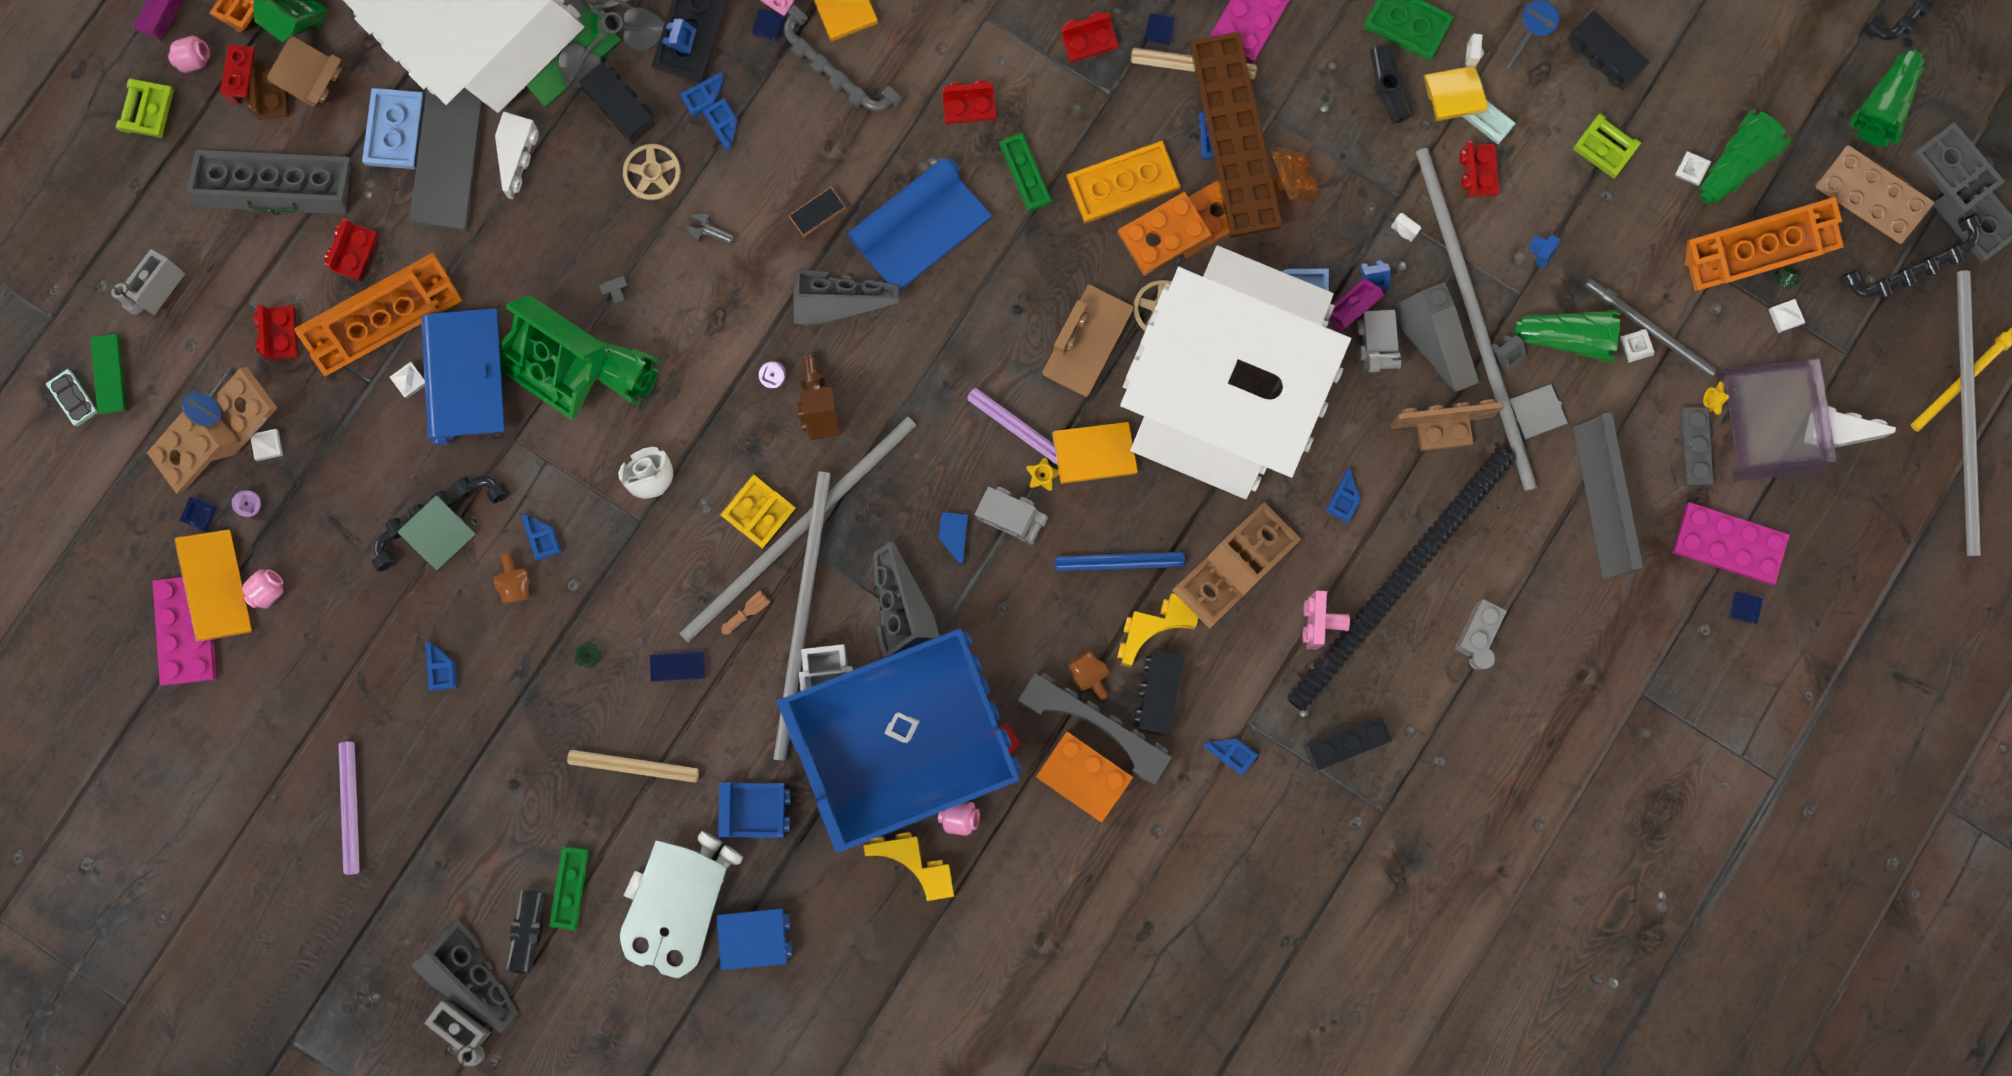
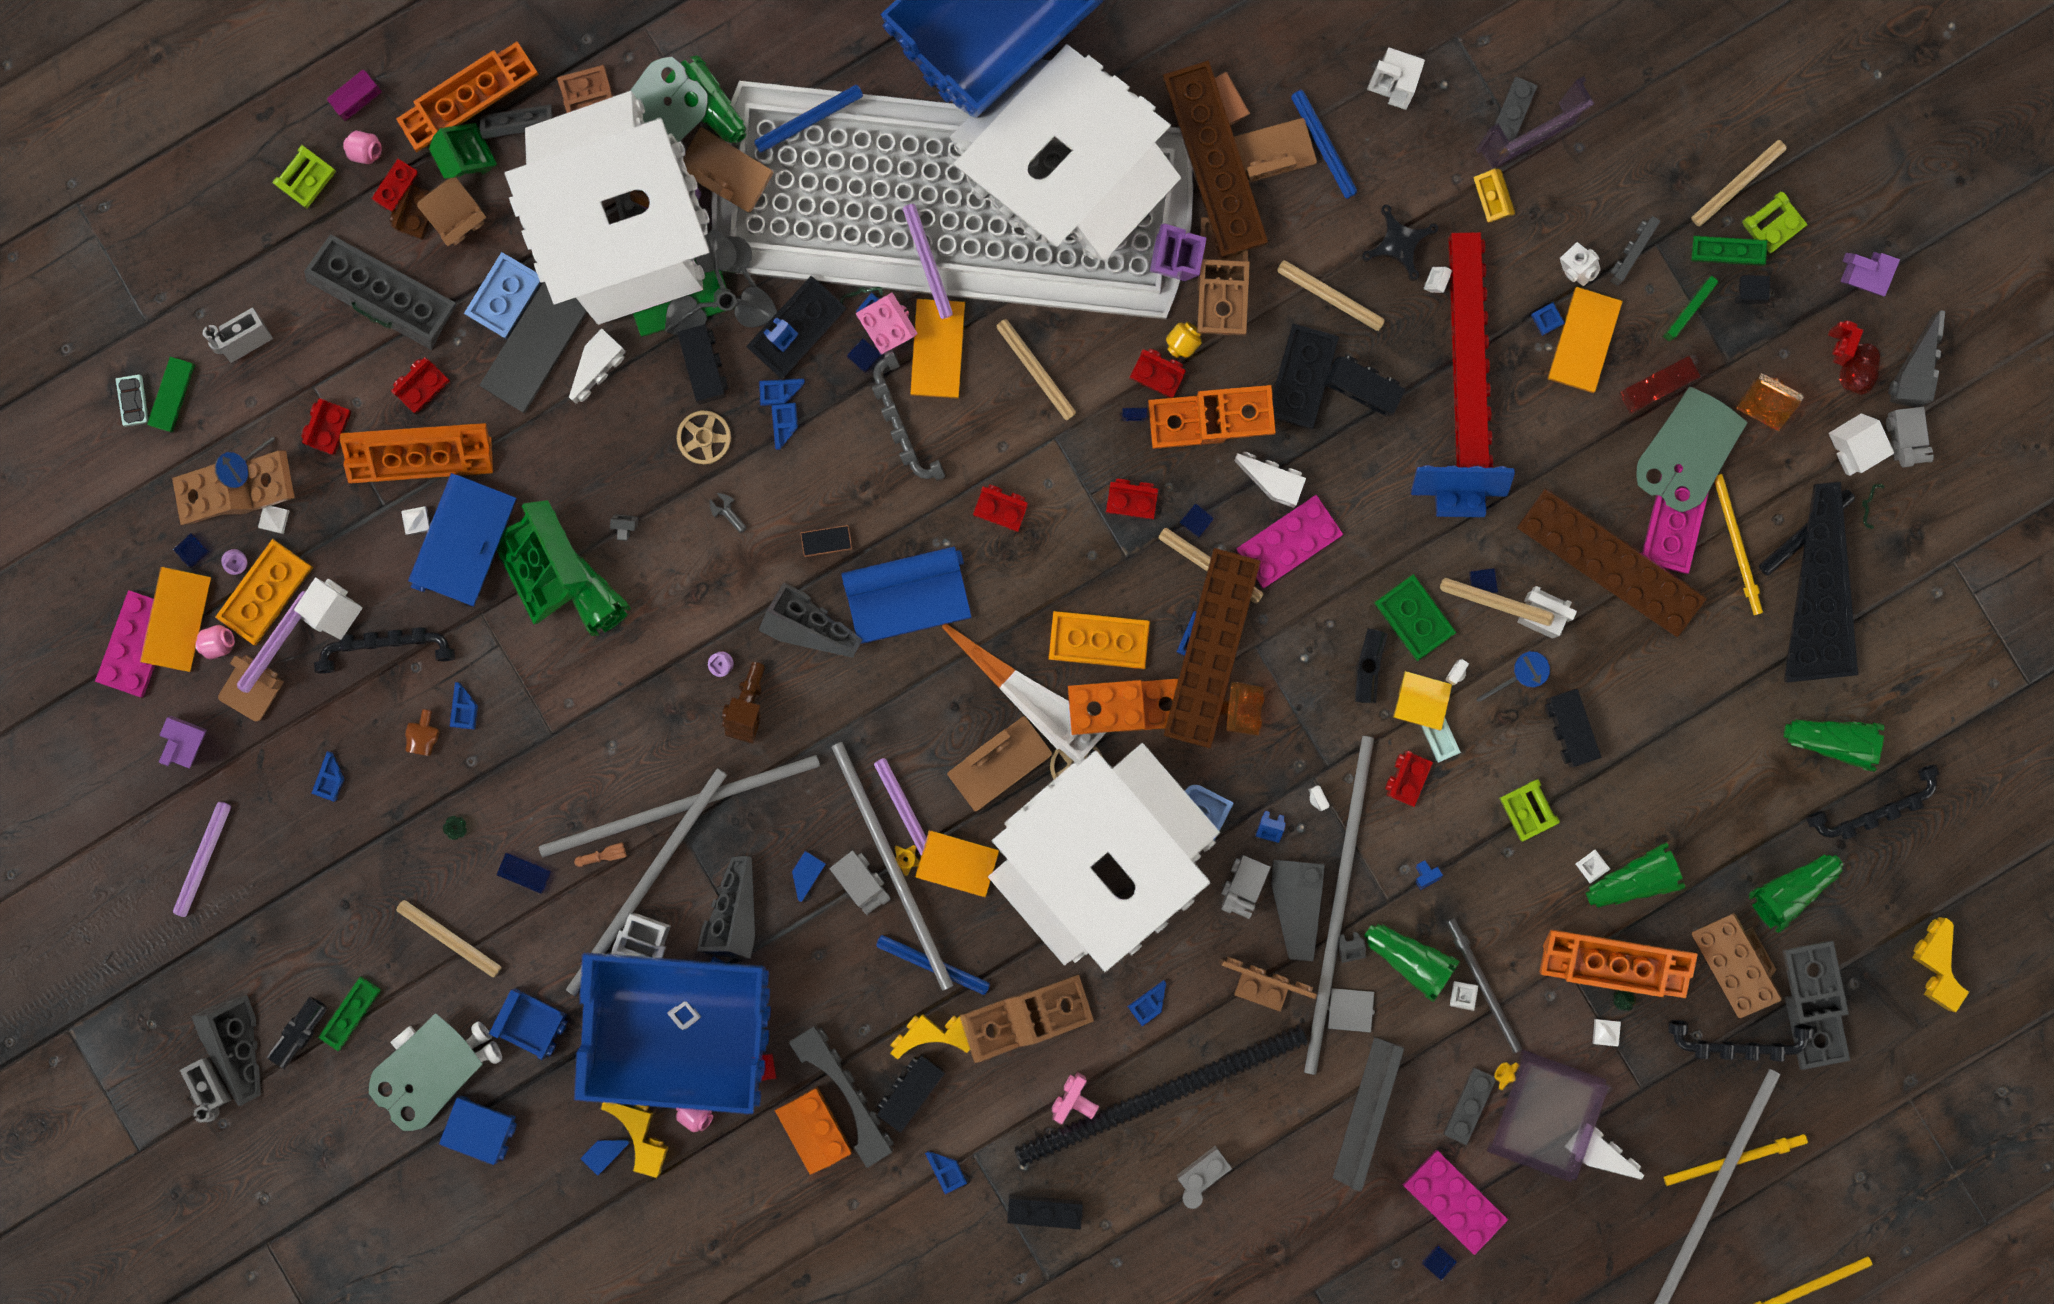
camera: 30 degrees right, 5 degrees up
(276, 699) = (182, 743): none -> medium lavender plate
(290, 519) = (264, 592): none -> light orange tile
(319, 616) = (257, 701): none -> medium nougat bracket
(323, 557) = (270, 648): none -> lavender axle
(360, 502) = (327, 608): none -> white plate
(436, 532) = (378, 664): sand green slope -> none
(647, 473) = (574, 699): white cylinder -> none
(757, 511) = (652, 774): yellow slope -> none
(888, 902) = (603, 1153): none -> blue tile
(1025, 172) = (1019, 591): green tile -> none
(1034, 485) = (892, 866): none -> light grey piece
(1088, 673) = (860, 1045): dark orange piece -> none
(1102, 267) = (1041, 706): none -> white plate
(1354, 304) = (1239, 845): magenta panel -> none

